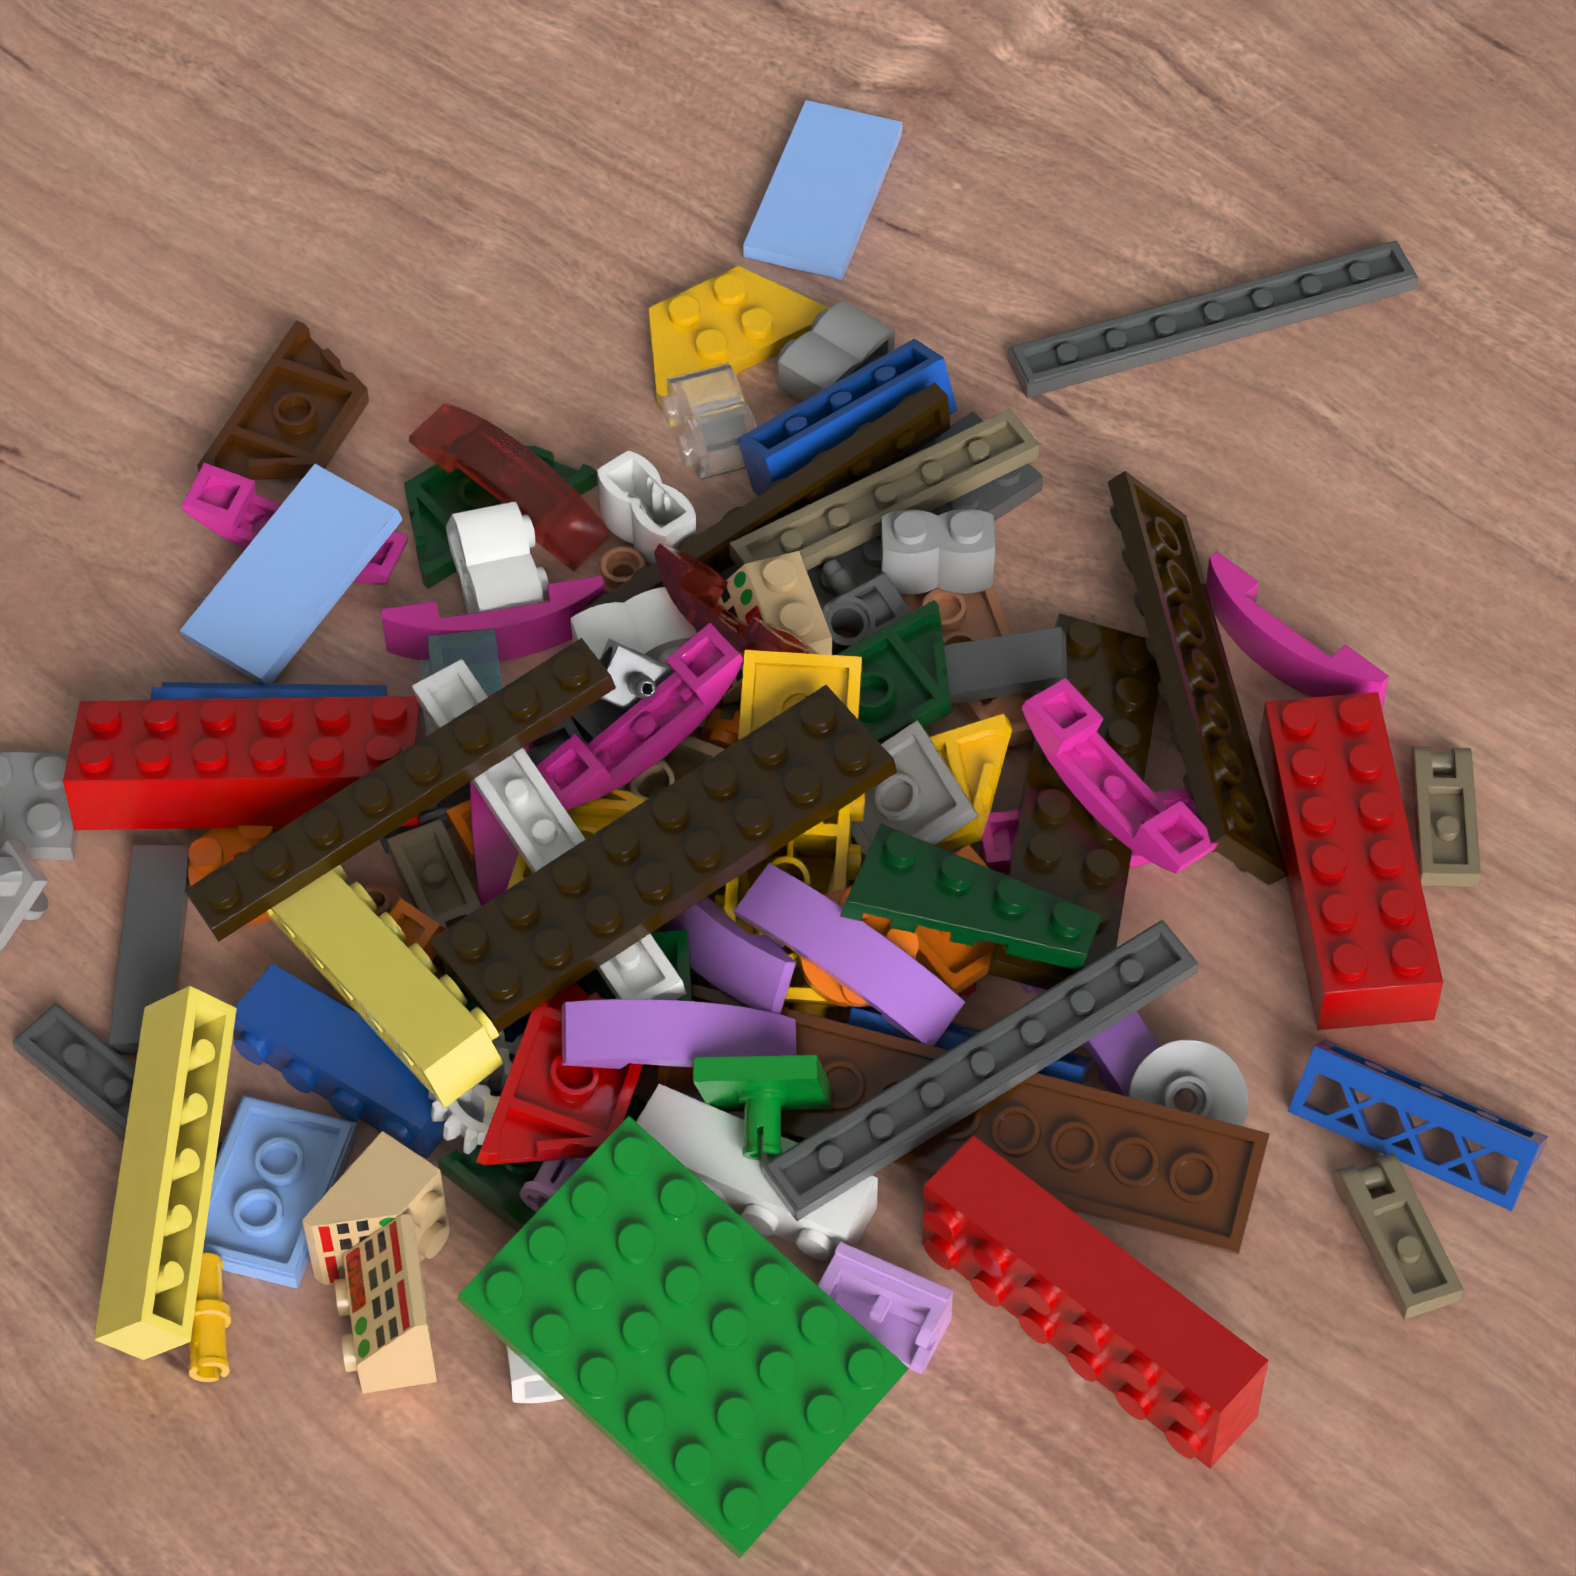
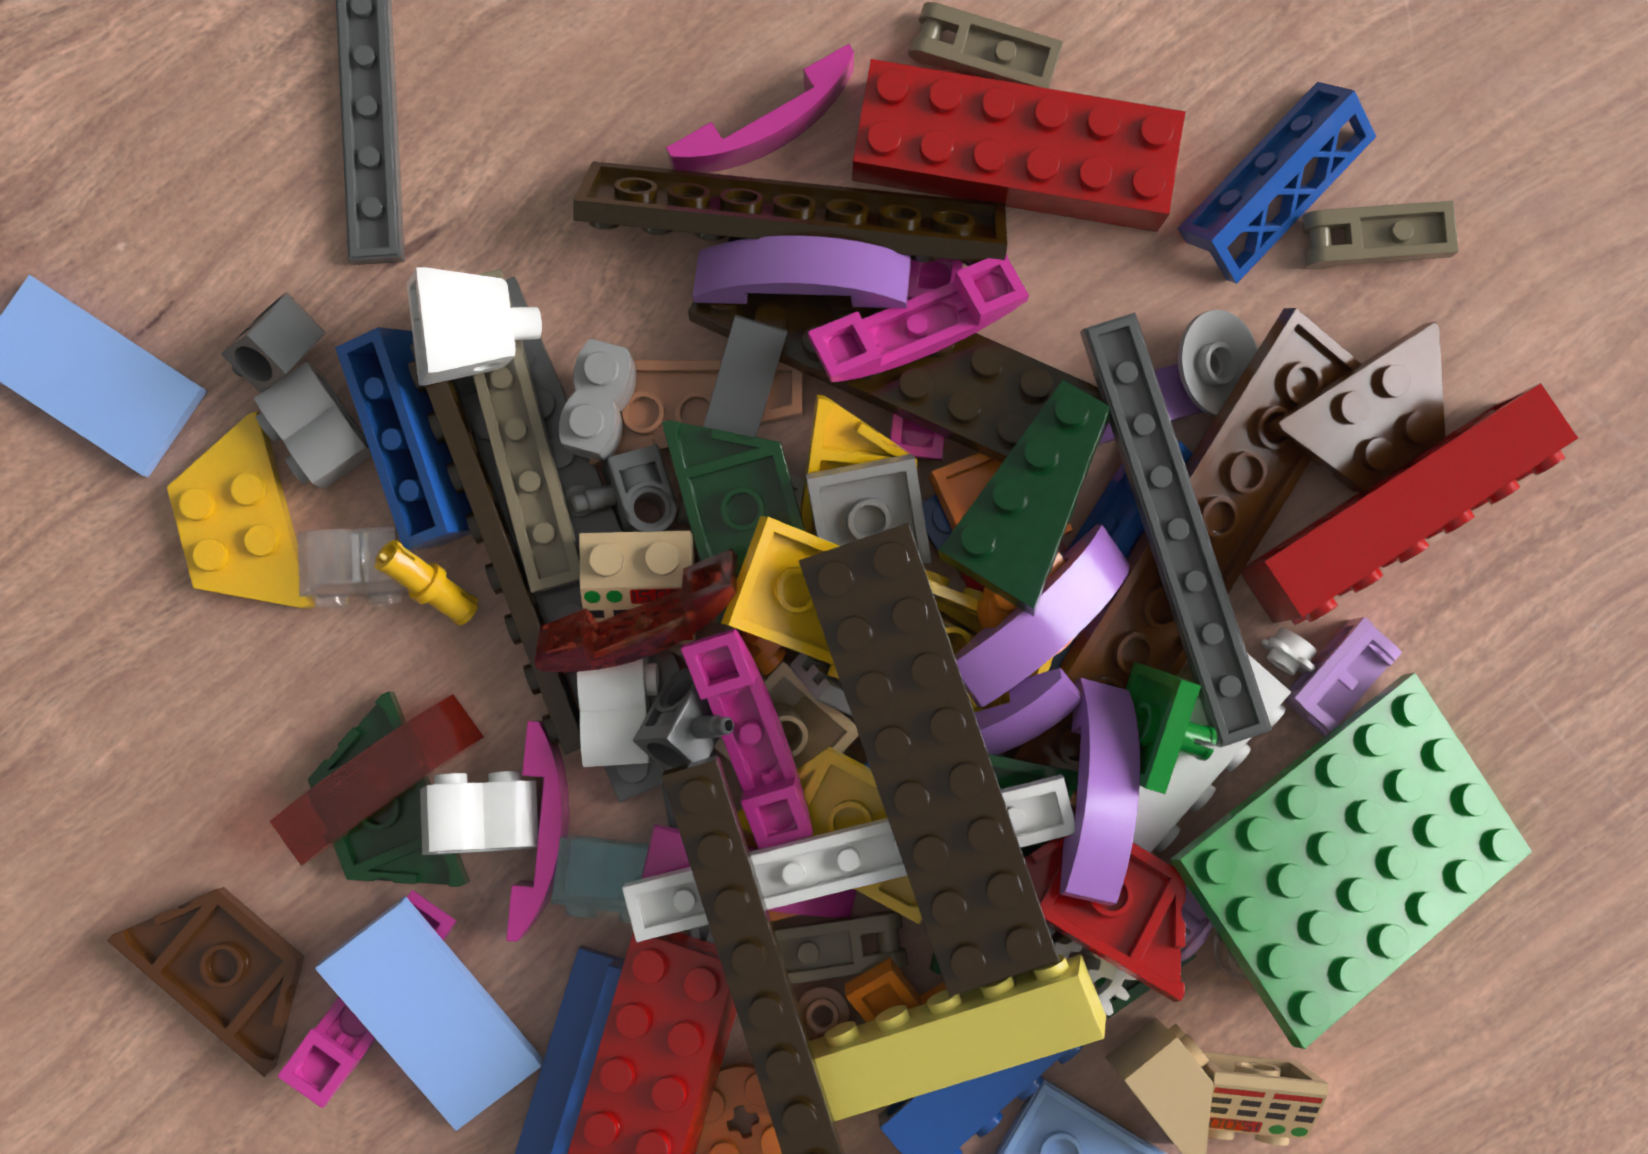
camera: 75 degrees left, 30 degrees up
(617, 563) = (494, 696): nougat plate -> none
(641, 507) = (447, 665): white brick -> none
(713, 466) = (426, 582): none -> yellow pin
(893, 1242) = (1290, 652): none -> white plate
(905, 301) = (273, 343): none -> dark grey piece
(967, 412) = (464, 324): none -> white torso
(1139, 683) = (802, 266): none -> medium lavender slope
(1199, 1251) = (1374, 413): none -> wing

